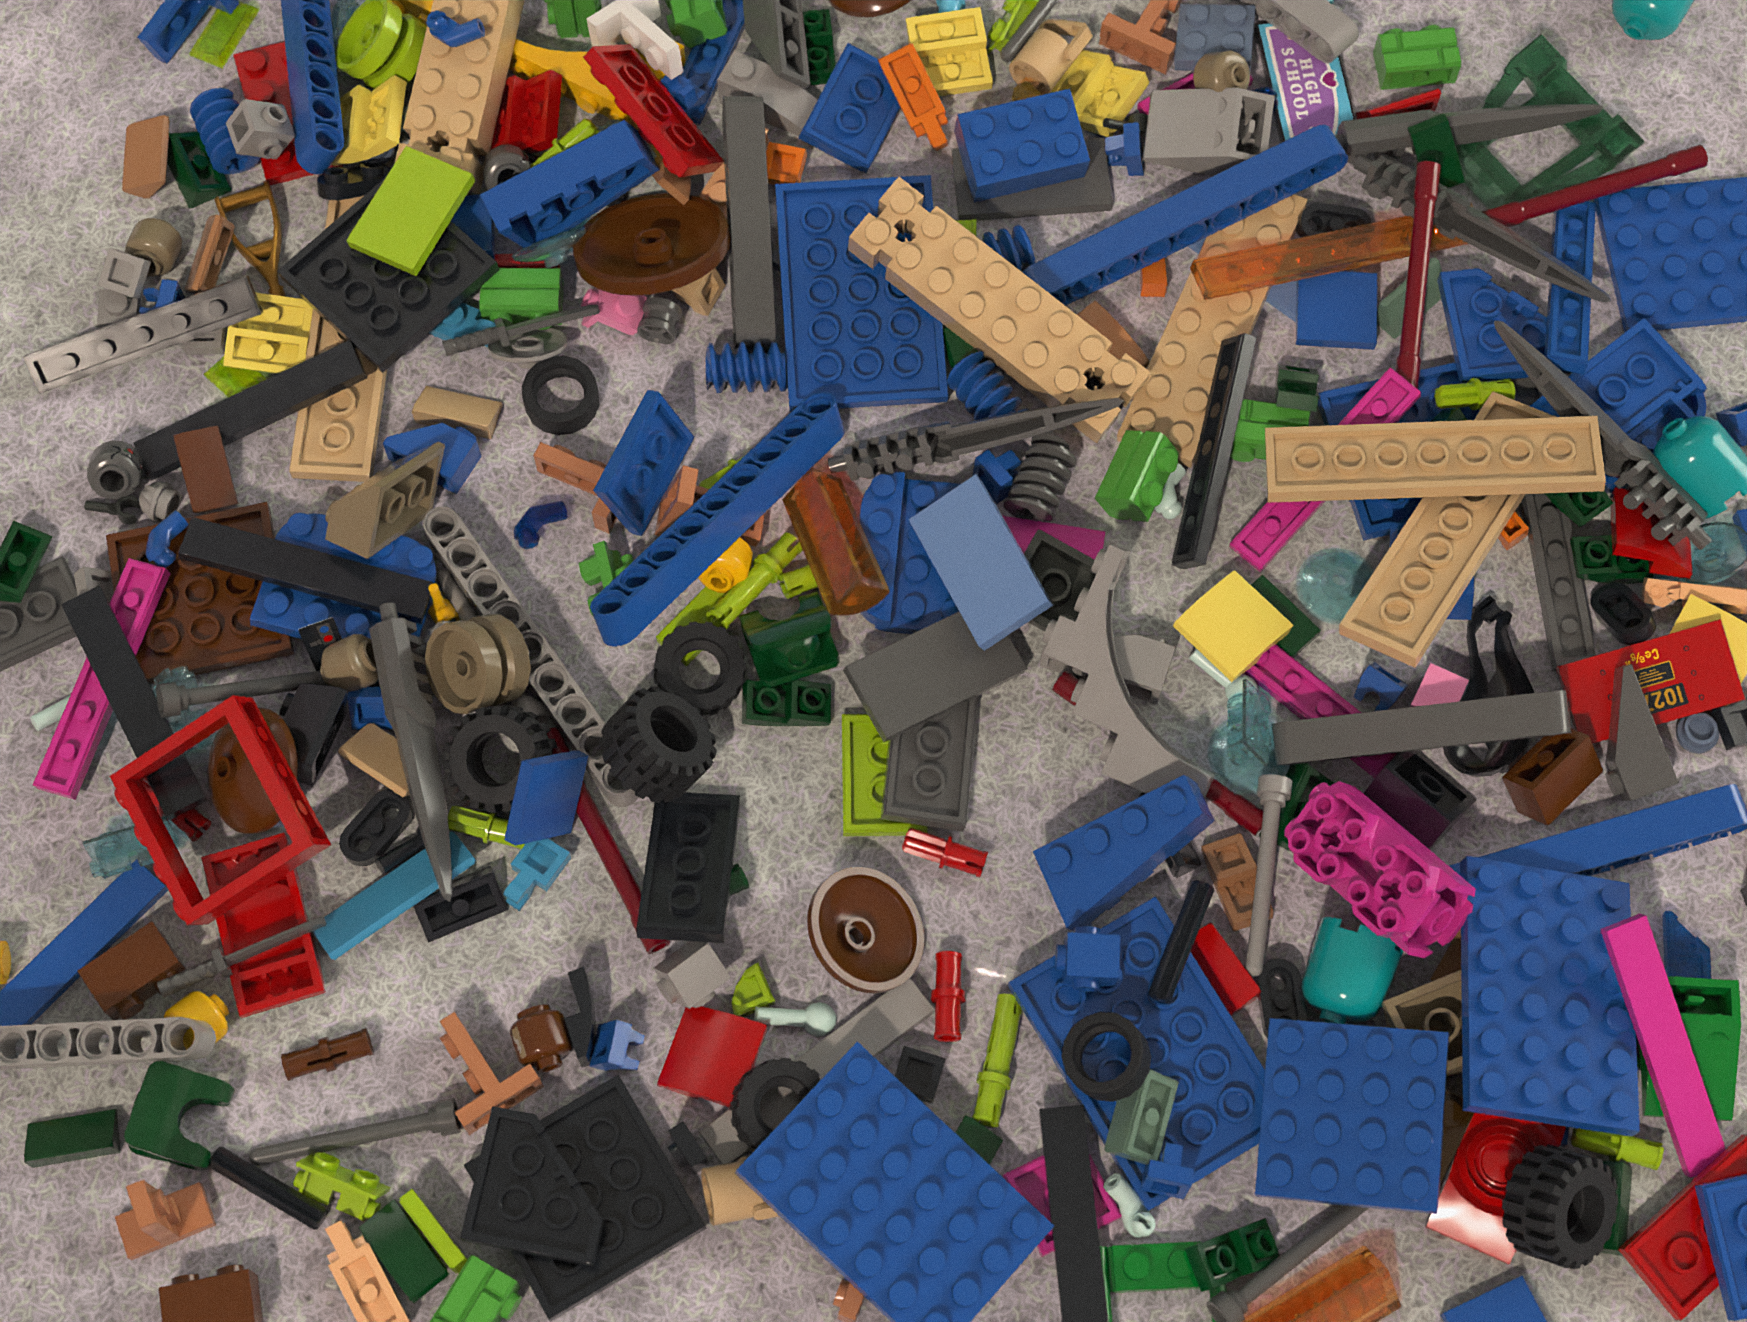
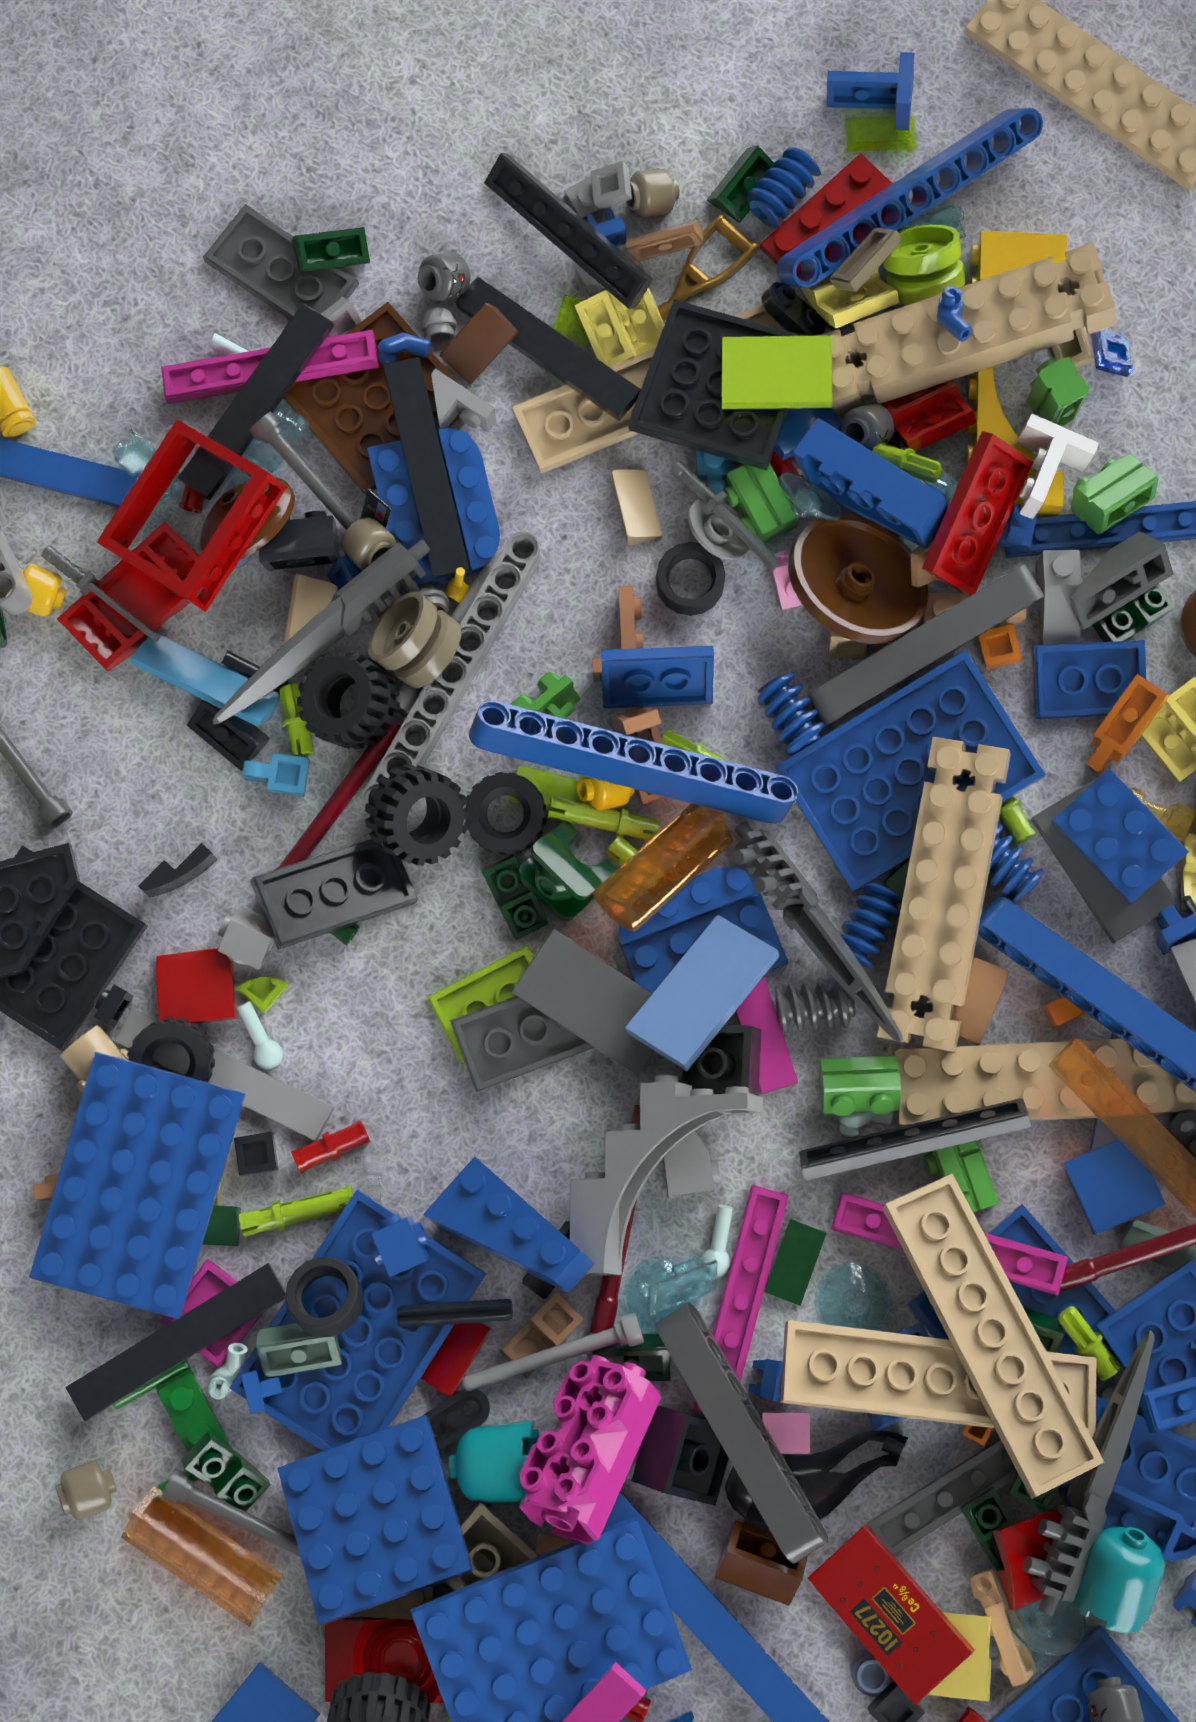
camera: 65 degrees right, 10 degrees up
(115, 508) = (418, 295): pearl dark grey hand -> none
(130, 972) = (55, 522): reddish brown brick -> none
(146, 156) = (729, 140): medium nougat slope -> none
(258, 507) = (454, 399): none -> light grey slope
(260, 129) = (791, 214): light grey brick -> none
(327, 1054) = (62, 699): reddish brown pin -> none
(349, 83) = (865, 259): none -> dark tan tile
(372, 826) = (255, 637): black plate -> none
(386, 503) = (510, 495): dark tan slope -> none
(459, 455) = (587, 512): blue slope -> none
(481, 1078) = (98, 820): nougat bracket -> none
(534, 518) = (570, 616): clear blue arm -> none
(541, 1038) = (144, 849): reddish brown head -> none
(546, 797) = (329, 751): blue tile -> none
(612, 1044) = (166, 906): blue tile -> none
(659, 320) = (797, 623): dark grey wheel -> none
(880, 920) = (349, 1077): reddish brown dish -> none
(944, 852) = (449, 1086): red axle -> none
(997, 473) = (803, 967): blue tile -> none
(1233, 625) = (761, 1229): light yellow slope -> none
(1296, 387) = (1015, 1183): dark green slope -> none
(1623, 613) = (943, 1565): black plate -> none
(1635, 747) = (819, 1625): dark grey slope -> none

